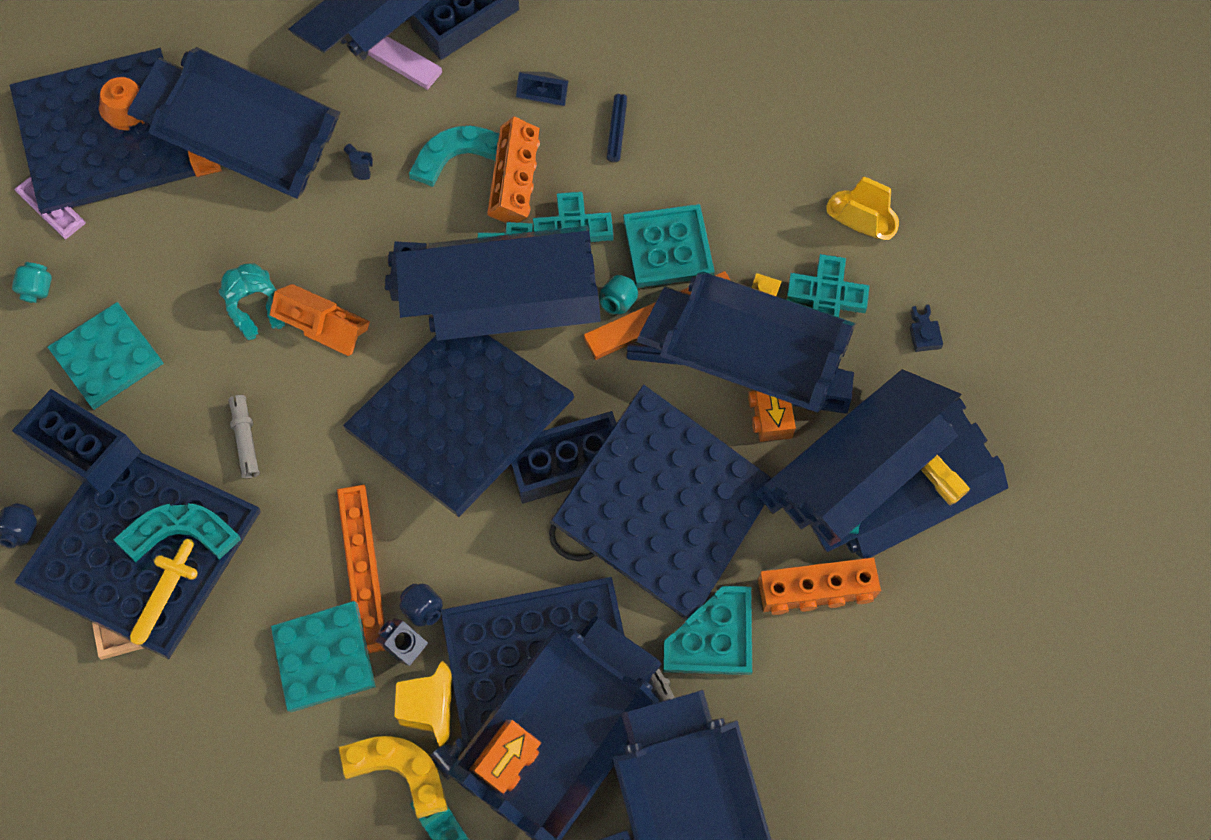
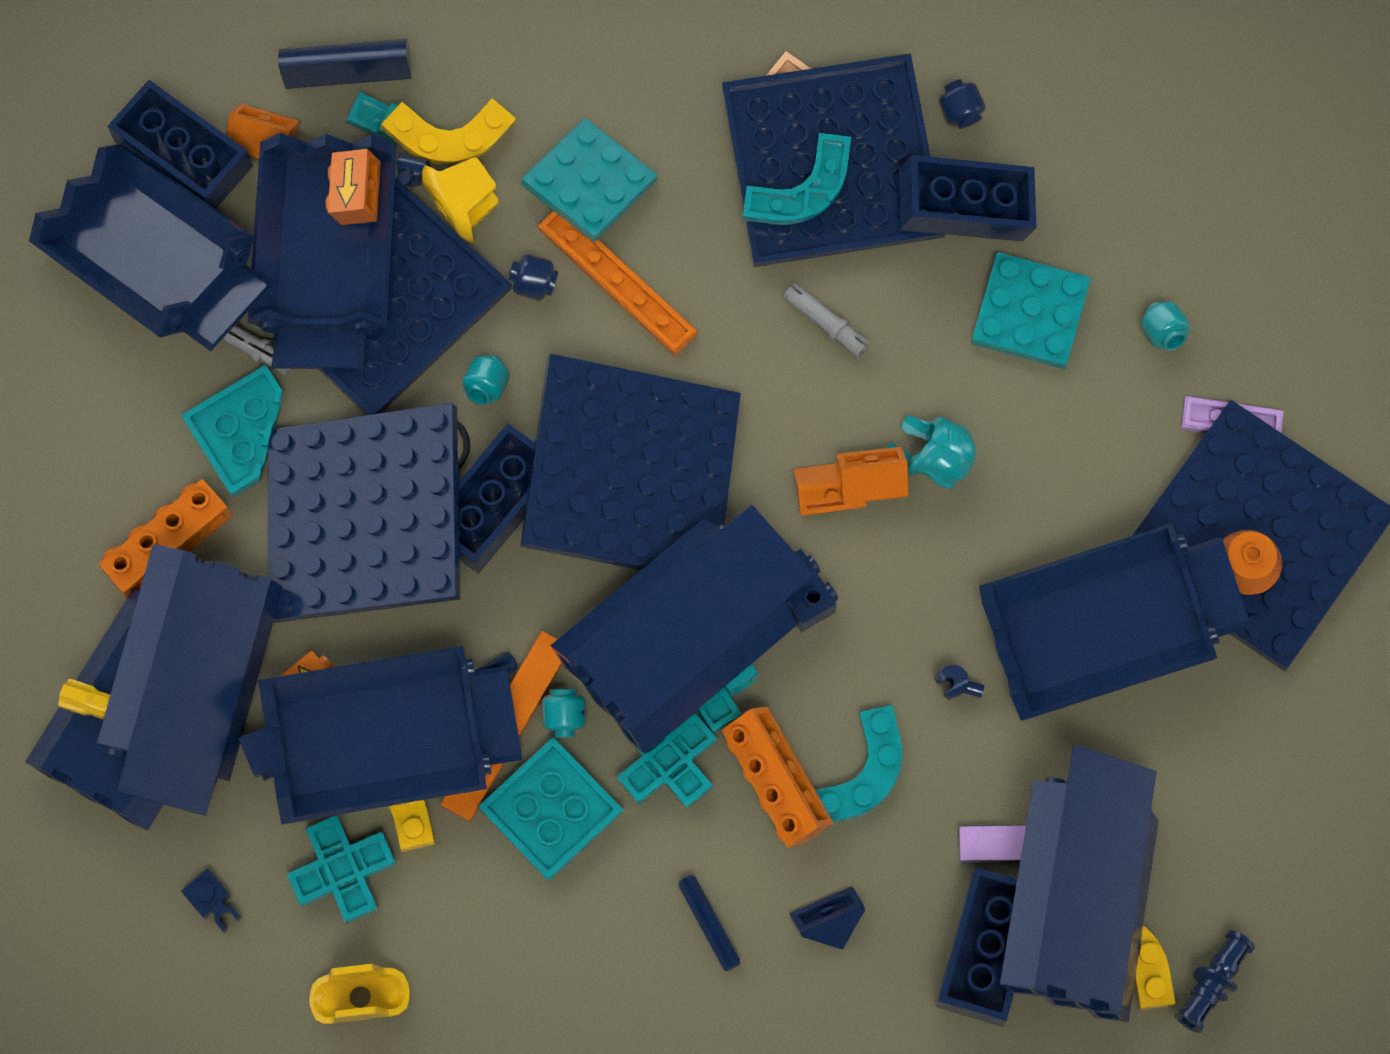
camera: 150 degrees right, 5 degrees up
(163, 590) = (772, 131): yellow sword -> none
(412, 644) = (524, 231): brick -> none
(511, 550) = (485, 379): none -> teal head

